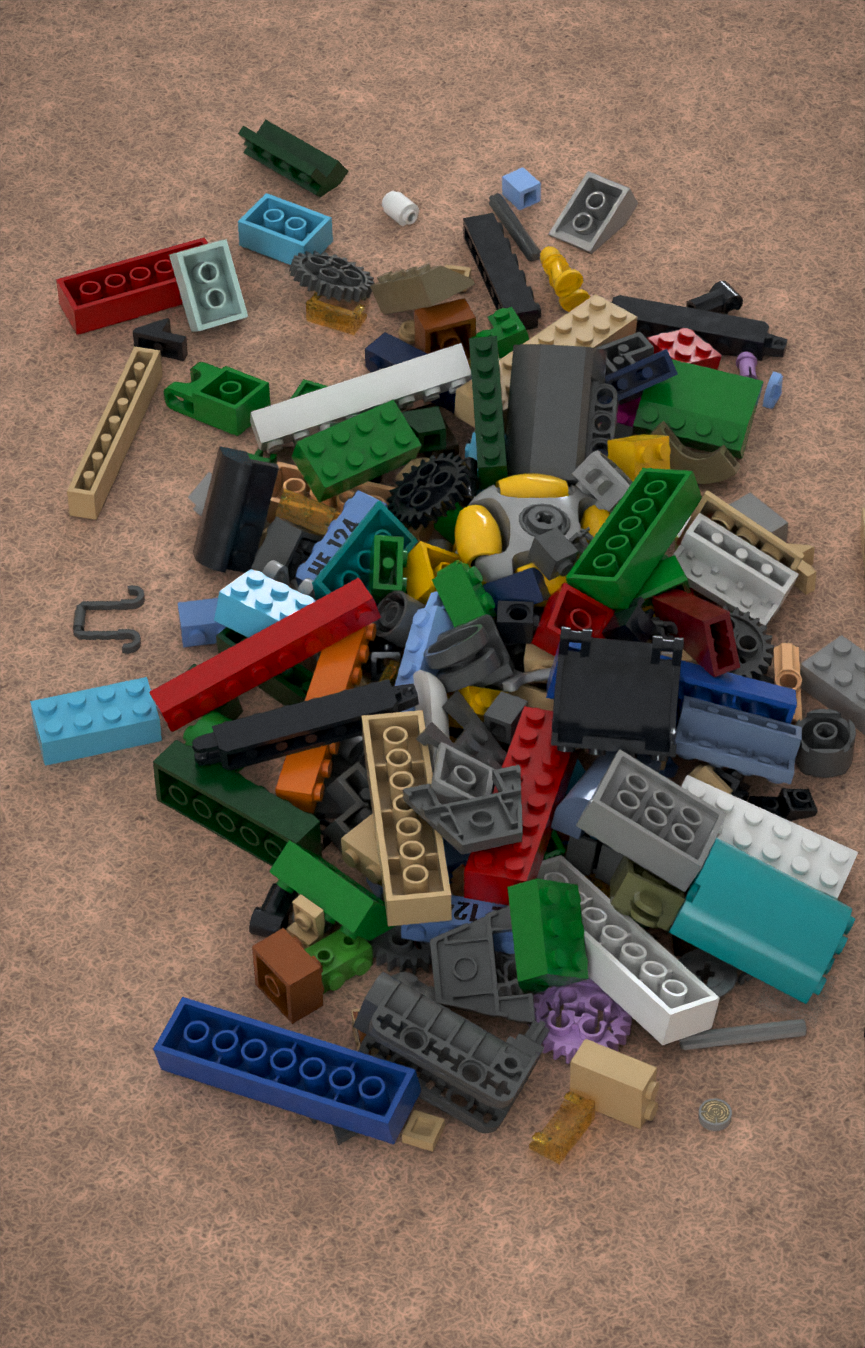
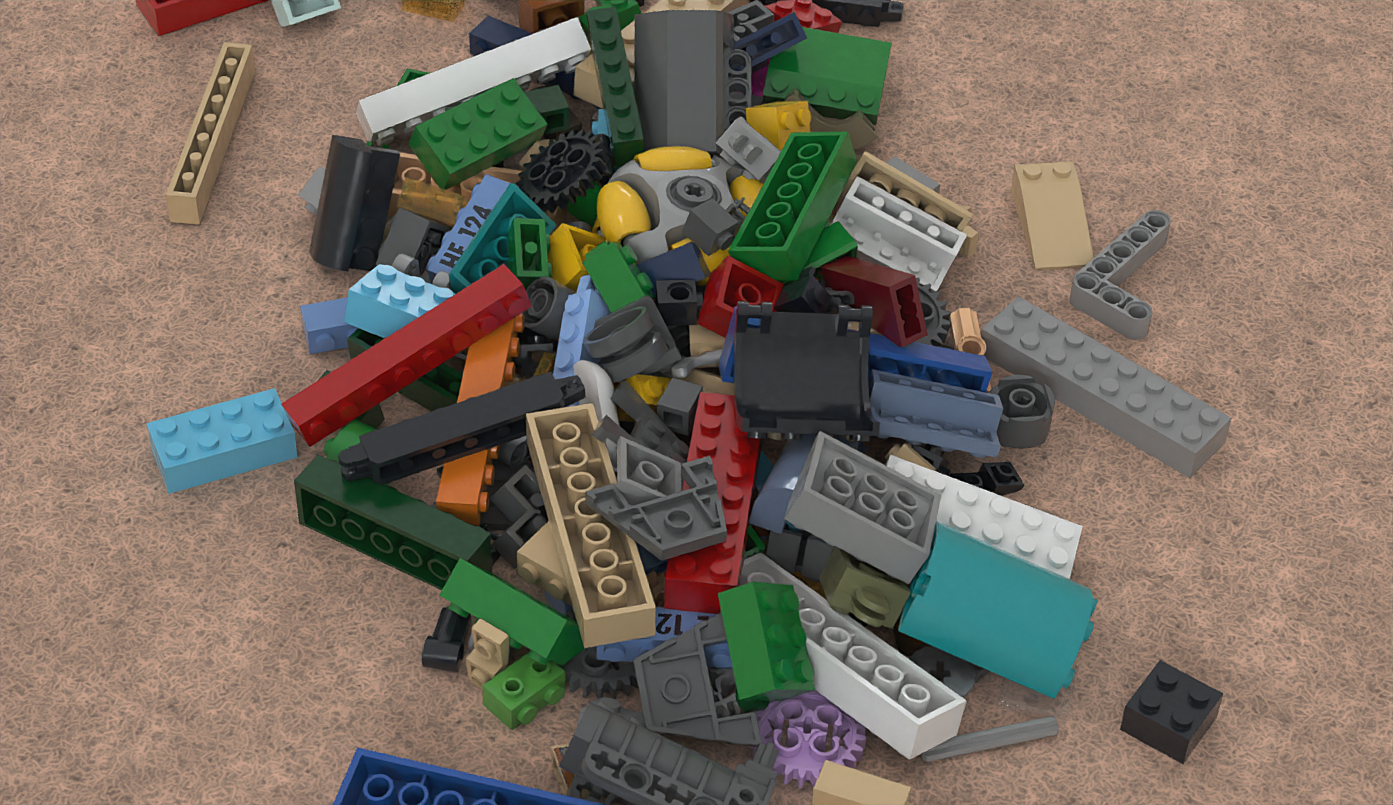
camera: 10 degrees left, 0 degrees up
(121, 634) = (191, 330): dark grey piece -> none
(159, 337) = (247, 31): black slope -> none
(219, 397) = (319, 90): green brick -> none
(288, 975) = (474, 712): dark orange brick -> none
(407, 332) = (511, 14): tan plate -> none
(746, 363) = (865, 28): lavender pin -> none
(773, 390) = (898, 52): light blue tile -> none

